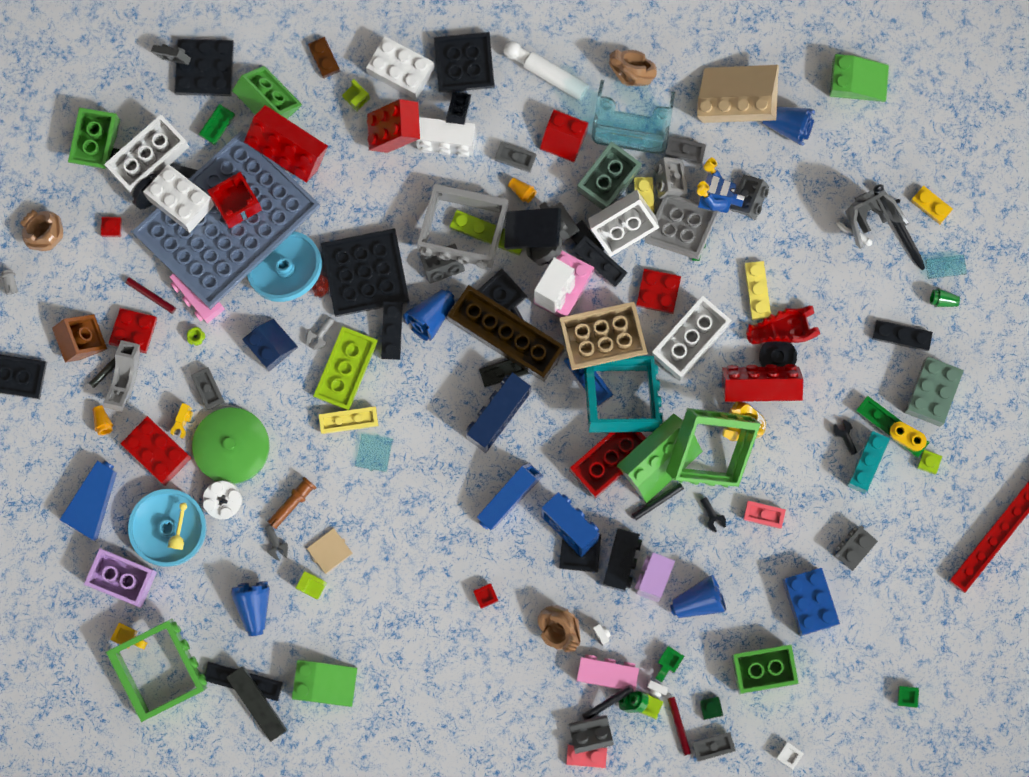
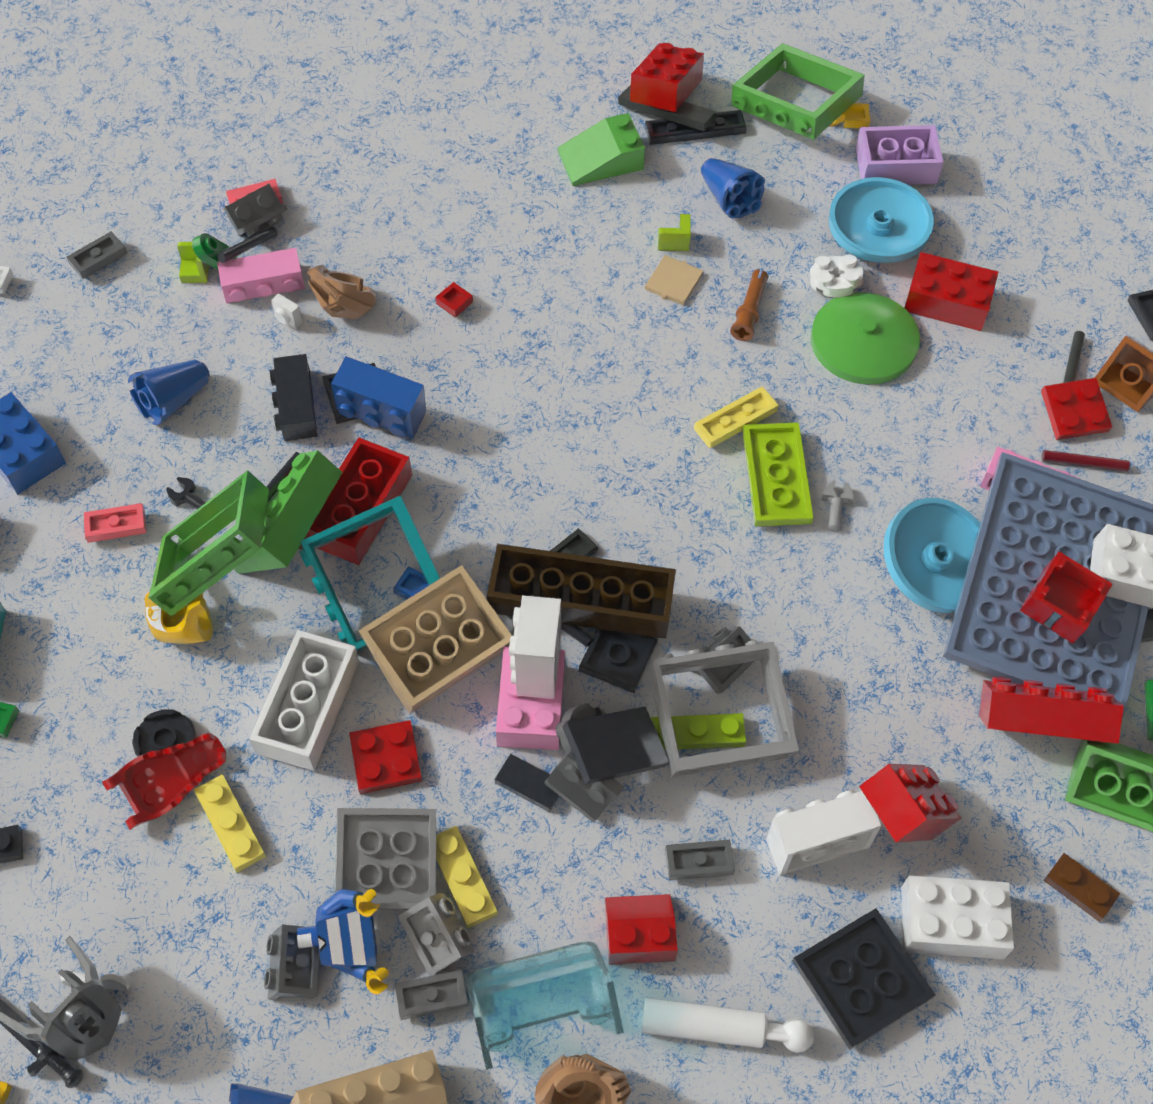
camera: 150 degrees right, 20 degrees down
(91, 501) = (986, 216): blue slope -> none
(102, 422) = (1037, 299): light orange cone -> none
(124, 376) = (1044, 347): light grey arch -> none
(176, 541) = (859, 203): light yellow hinge -> none
(183, 416) = (945, 339): yellow plate -> none
(195, 331) = (994, 429): lime plate -> none
(207, 388) = (937, 382): dark grey plate -> none
(245, 724) = (666, 77): none -> red brick
(270, 344) = (894, 460): dark blue slope -> none
(275, 543) = (739, 259): dark grey bar -> none
(321, 286) = (873, 557): clear red plate -> none
(356, 95) = (994, 847): lime panel -> none
(364, 272) = (824, 602): black plate -> none
(374, 452) = (681, 400): clear light blue piece -> none
(392, 330) = (743, 541): black plate -> none
(430, 314) = (702, 577): blue cone -> none
(458, 108) = (828, 881): black tile -> none
(499, 412) = (541, 489): dark blue brick -> none
(509, 496) = (474, 411): blue slope -> none
(522, 190) = (663, 813): light orange cone -> none
(599, 260) = (493, 753): black plate -> none
(609, 176) = (535, 886): sand green brick -> none
(623, 223) = (478, 812): white brick -> none
(655, 578) = (237, 375): lavender brick -> none
(657, 689) = (191, 284): white plate -> none
(670, 662) = (187, 317): green plate -> none
(679, 726) = (150, 263): dark red bar -> none
(711, 708) = (115, 293): dark green plate -> none
(762, 383) = (169, 674): red brick -> none
(765, 669) = (54, 345): bright green brick -> none
(845, 435) = (25, 672): black bar -> none

